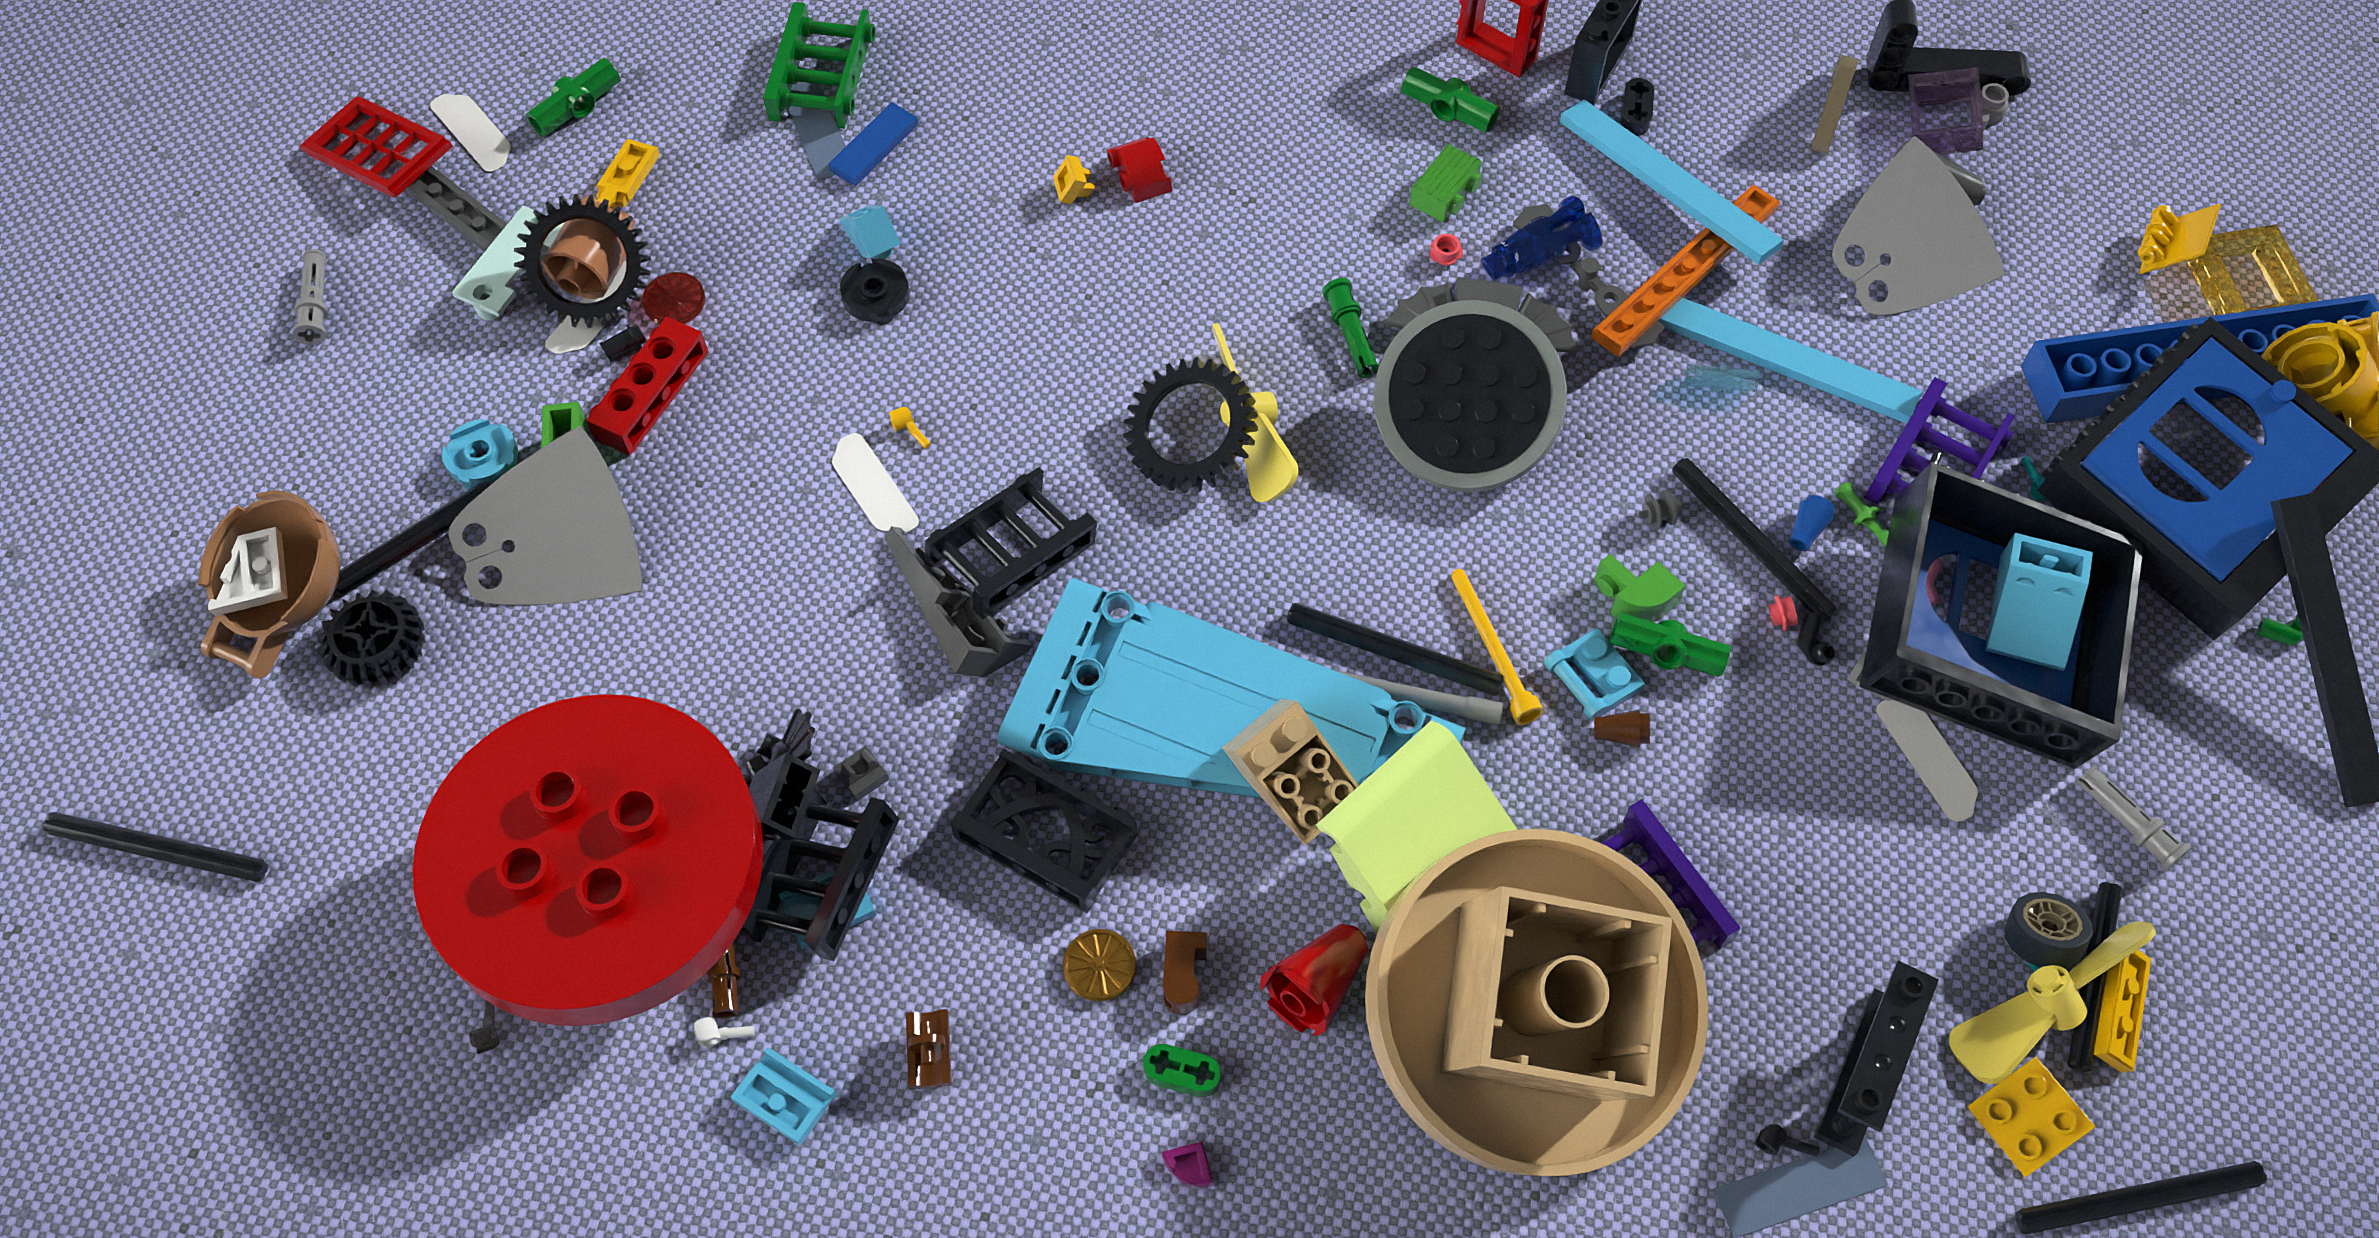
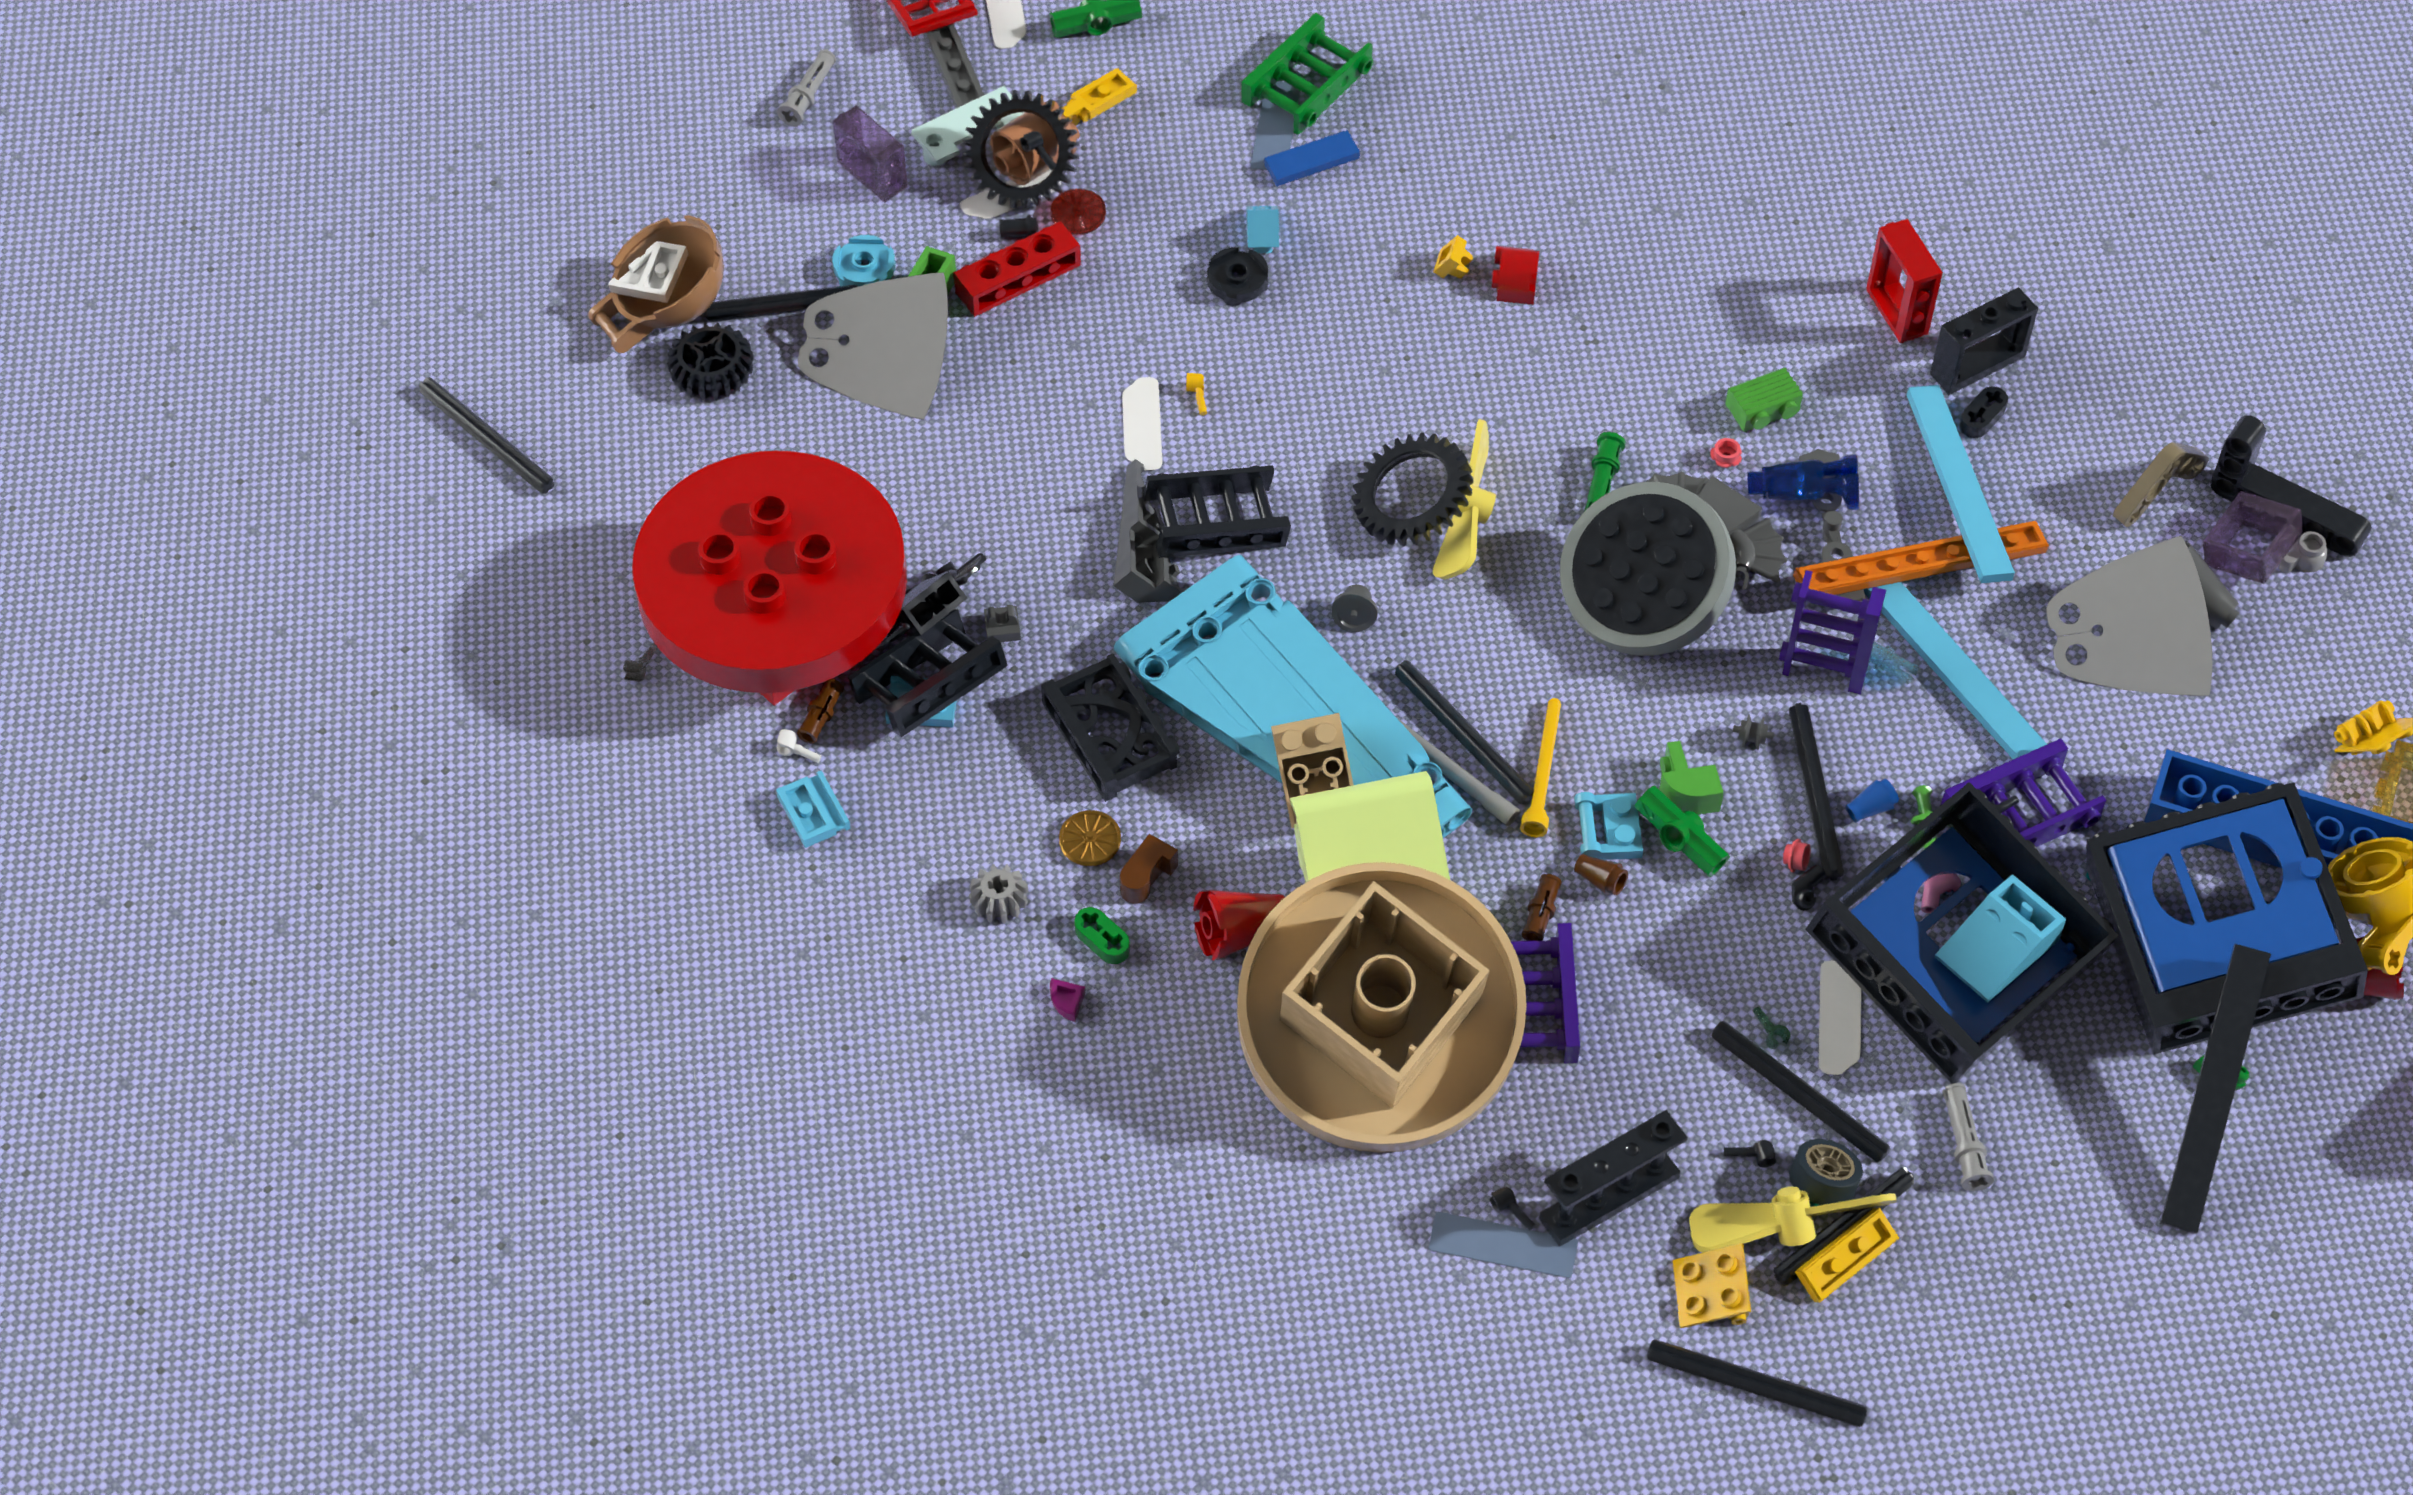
camera: 30 degrees right, 5 degrees down
(422, 335) = (870, 153): none -> clear purple window
(596, 246) = (1035, 141): none -> black hand
(928, 1049) = (929, 828): reddish brown hips -> none
(1050, 1071) = (998, 893): none -> light grey gear
(1210, 575) = (1354, 609): none -> dark grey piece
(1450, 99) = (1820, 333): green piece -> none
(1593, 796) = (1547, 892): none -> reddish brown pin
(1711, 387) = (1863, 631): none -> dark purple fence
(1886, 806) = (1771, 1029): none -> clear green hand
(1956, 854) = (1800, 1091): none -> black axle
(1970, 939) = (1762, 1150): none -> black hand

